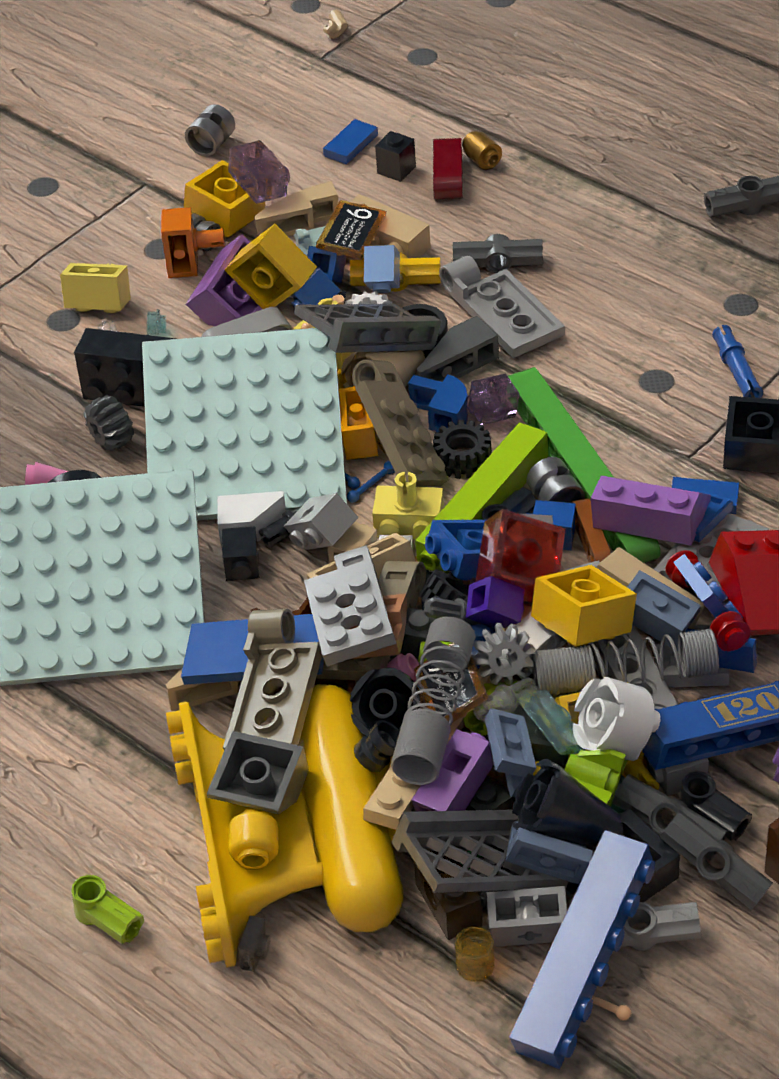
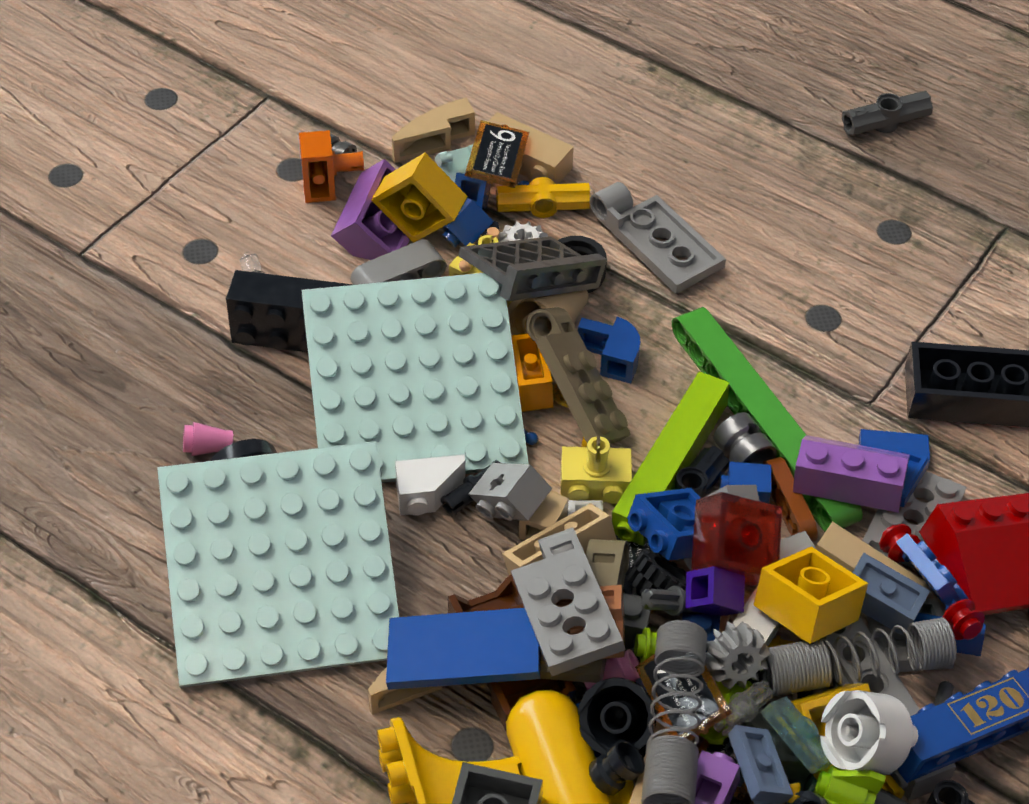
camera: 10 degrees left, 5 degrees up
(95, 287) = (233, 216): light yellow brick -> none
(108, 423) = (267, 375): dark grey gear -> none
(155, 323) = (300, 256): clear light blue plate -> none
(210, 130) = (331, 38): flat silver wheel -> none
(221, 199) = (358, 114): yellow brick -> none
(240, 553) = (425, 526): black brick -> none
(258, 171) = (393, 89): brick -> none
(272, 664) = (489, 673): dark tan hinge -> none
(350, 141) = (475, 50): blue tile -> none
(353, 496) = (566, 420): blue hinge -> none
(381, 268) = (533, 197): light blue brick -> none
(395, 156) = (526, 68): black brick -> none
(447, 168) = (580, 82): dark red beam -> none
(461, 351) = (626, 286): dark grey slope -> none
(462, 437) = (644, 385): black tyre -> none
(482, 149) = (612, 61): pearl gold brick -> none
(493, 399) = (666, 343): clear purple brick -> none
(500, 252) = (646, 176): dark grey piece -> none
(733, 355) = (899, 290): blue pin -> none

